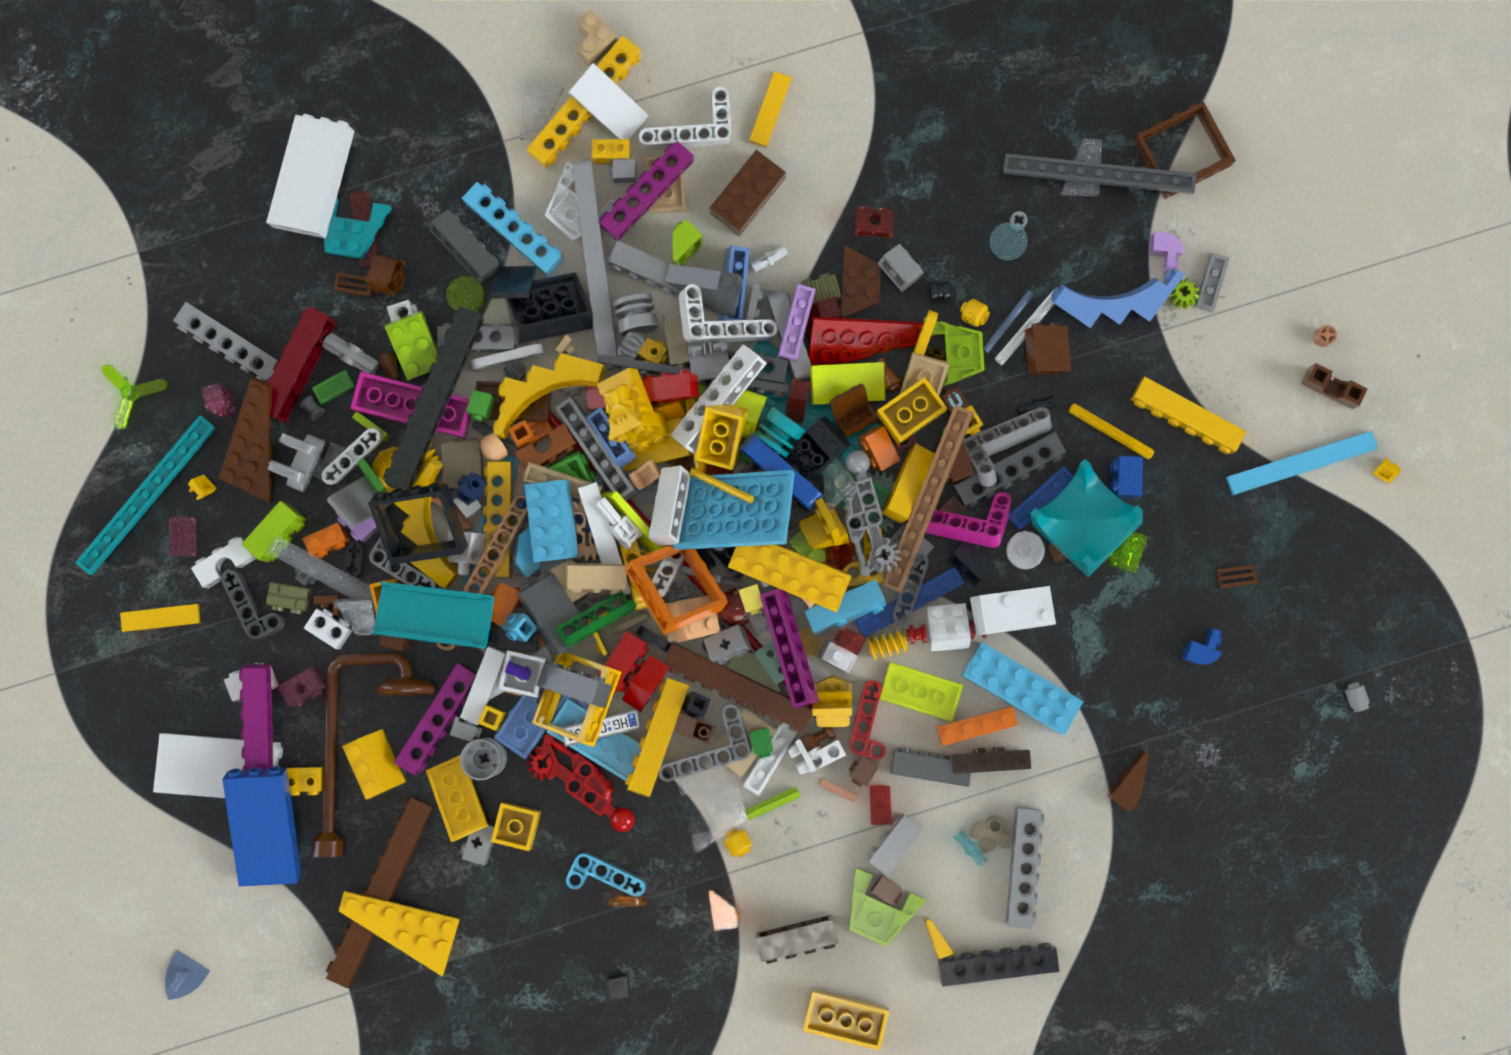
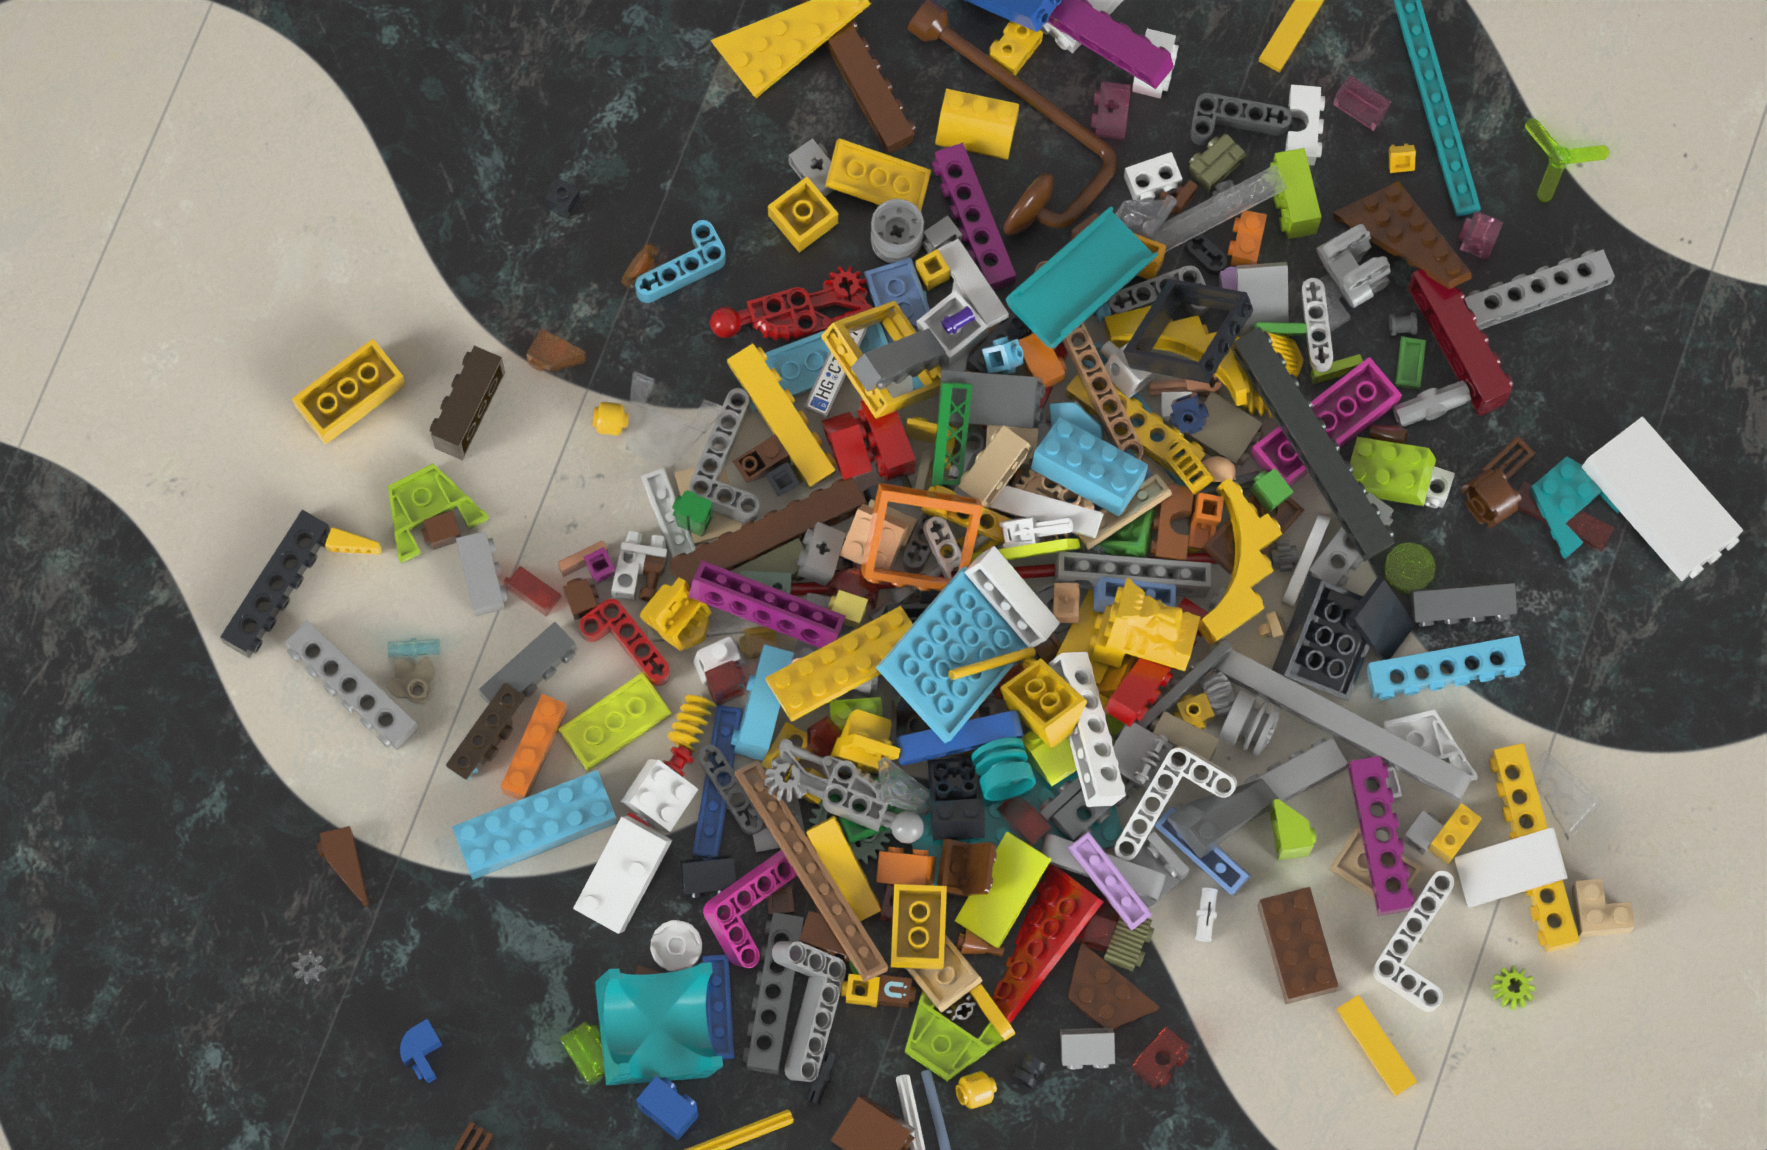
camera: 125 degrees right, 10 degrees down
(503, 446) = (1202, 481): none -> yellow slope
(681, 61) = (1522, 992): none -> lime gear
(772, 803) = (622, 484): lime axle -> none
(836, 774) = (599, 565): none -> magenta leg

